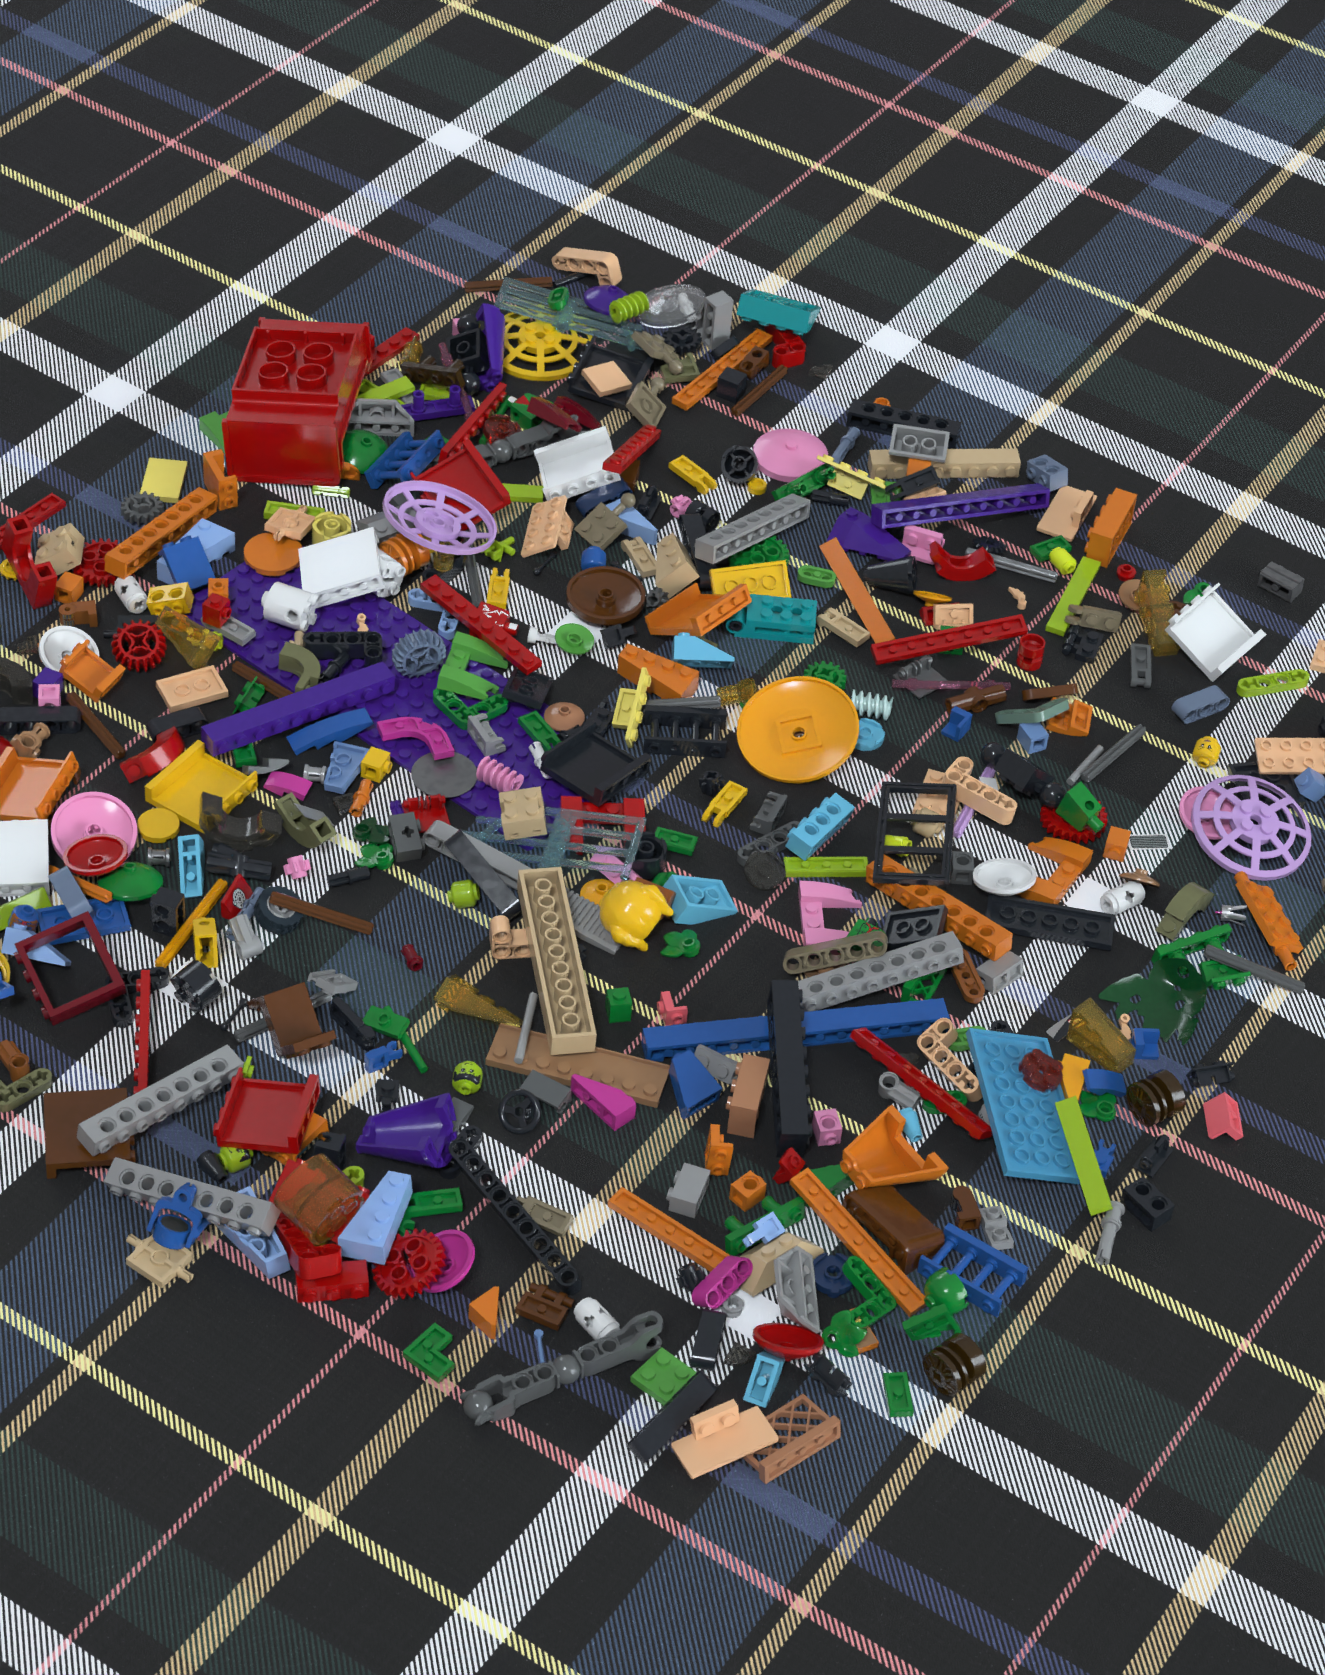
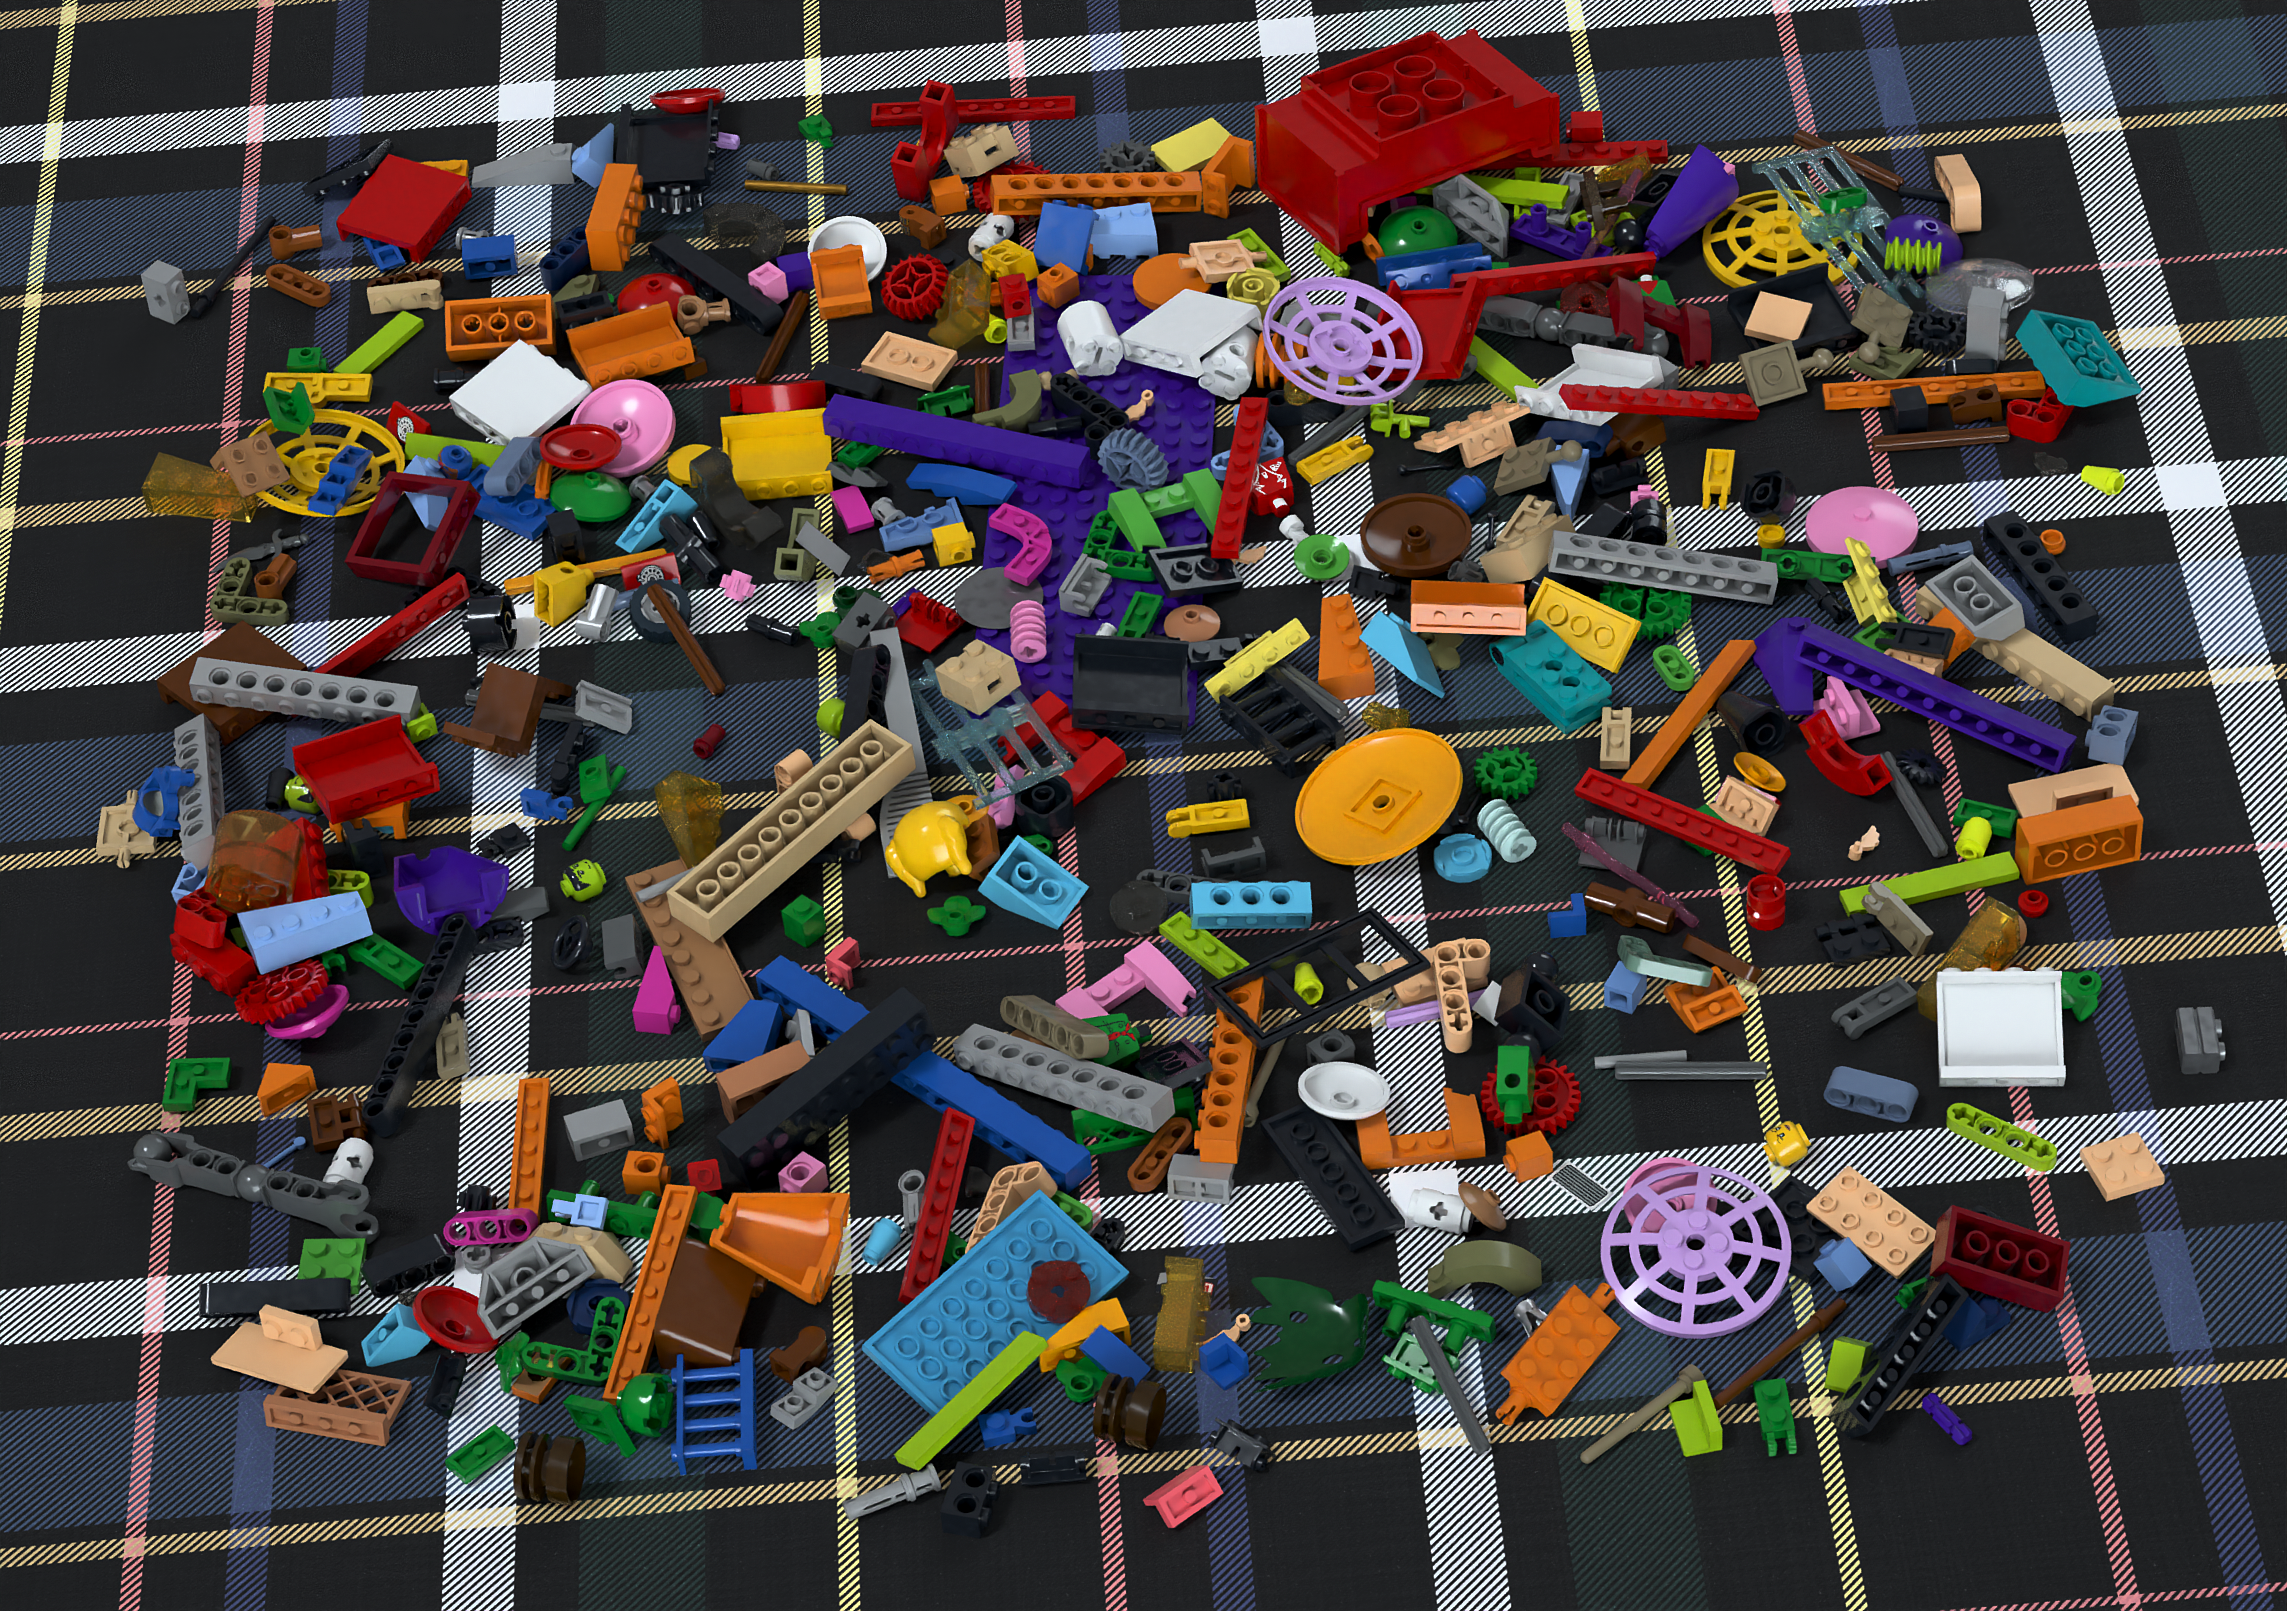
camera: 60 degrees right, 0 degrees up
(677, 841) = (1103, 817): green plate -> none
(858, 362) = (2104, 479): none -> neon yellow cone

